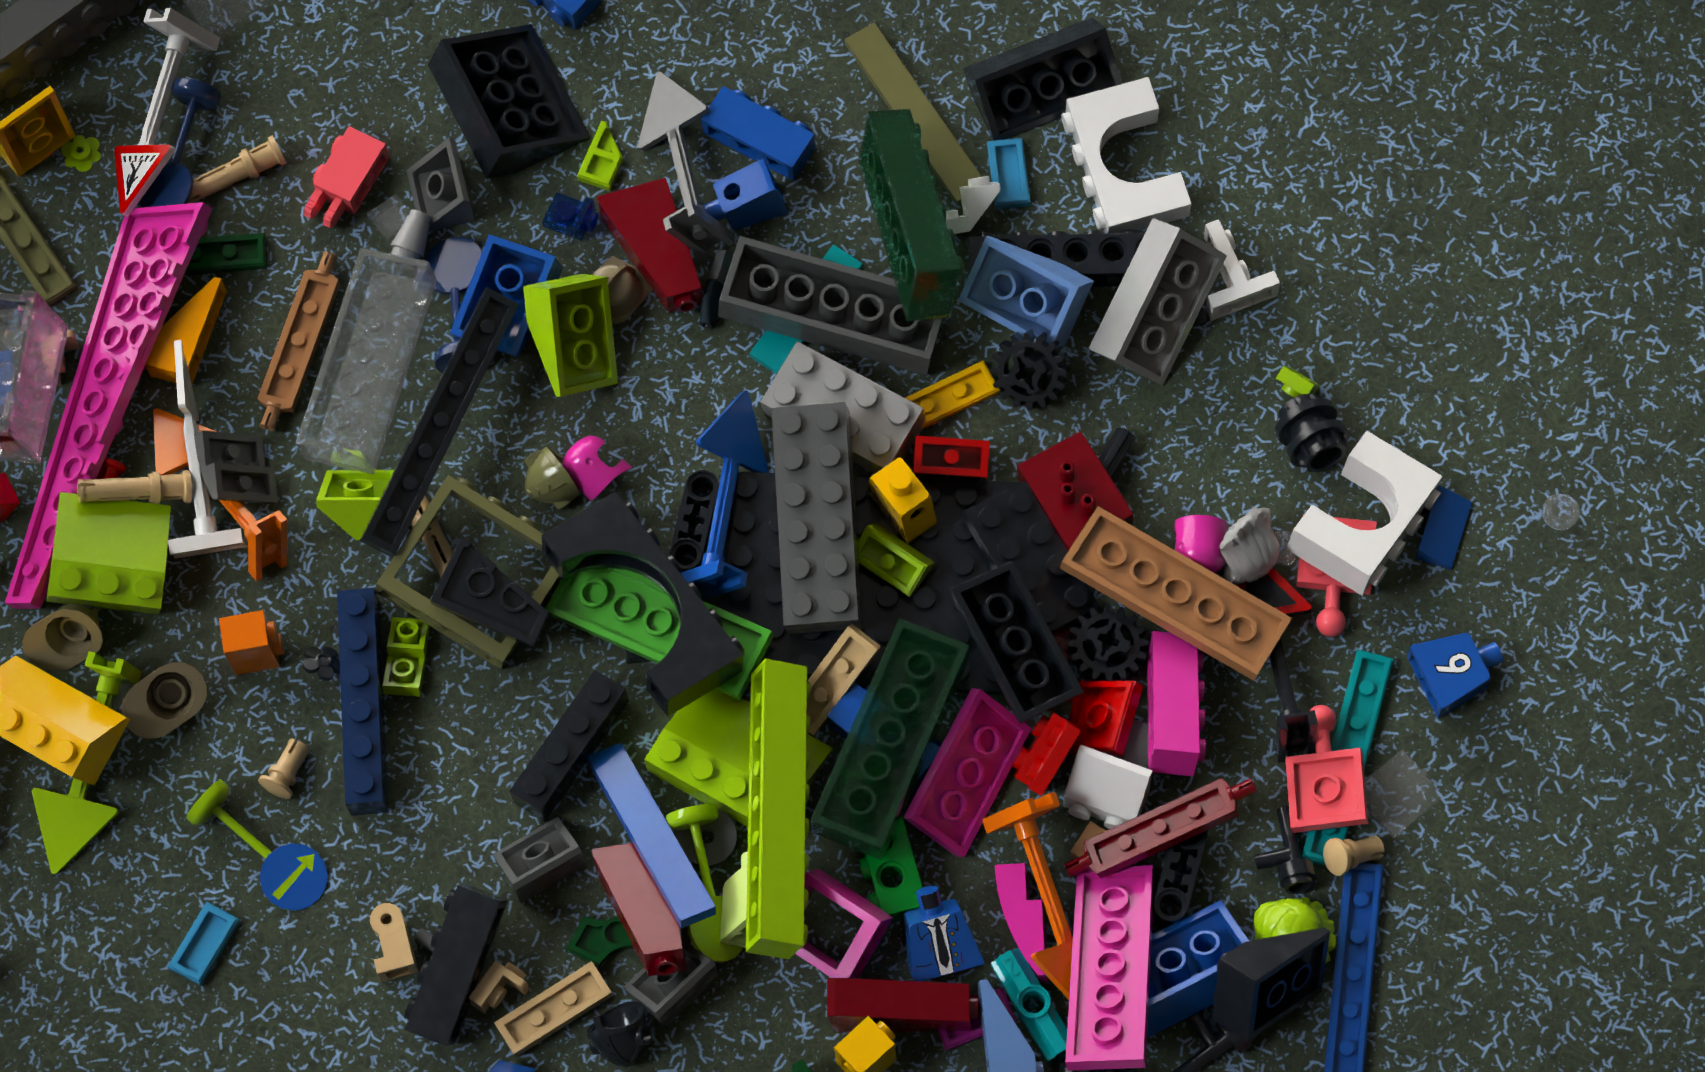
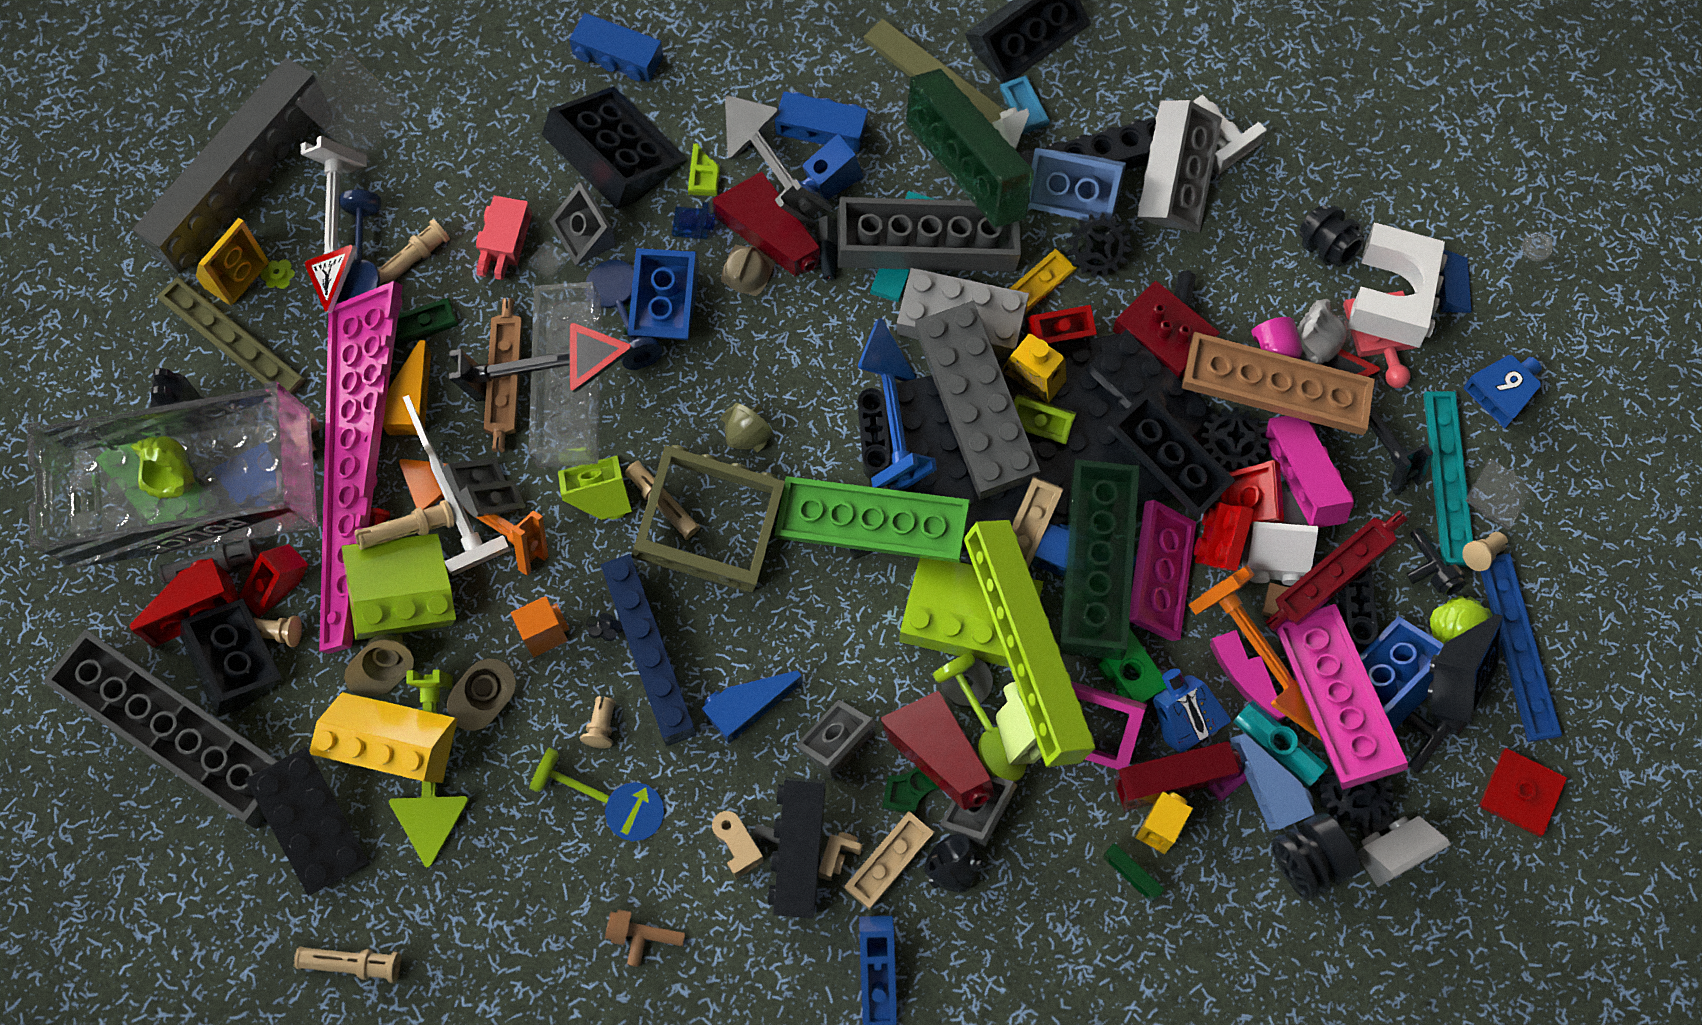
camera: 20 degrees left, 0 degrees up
(203, 943) = (575, 890): dark azure tile -> none
(238, 996) = (620, 927): none -> medium nougat piece
(391, 350) = (588, 358): none -> black piece
(406, 657) = (671, 603): lime slope -> none
(412, 236) = (571, 266): light grey cone -> none
(439, 422) = (643, 407): black plate -> none
(447, 793) = (744, 704): none -> blue slope
(486, 596) = (727, 535): black wing -> none
(568, 745) = (831, 638): black brick -> none
(573, 332) = (728, 307): lime slope -> none
(587, 469) = (777, 411): dark pink helmet -> none
(614, 538) = (817, 459): black arch -> none
(651, 835) = (928, 693): tile -> none
(1119, 203) = (1115, 102): white arch -> none
(1295, 382) = (1303, 202): lime plate -> none
(1327, 785) = (1447, 502): coral plate -> none

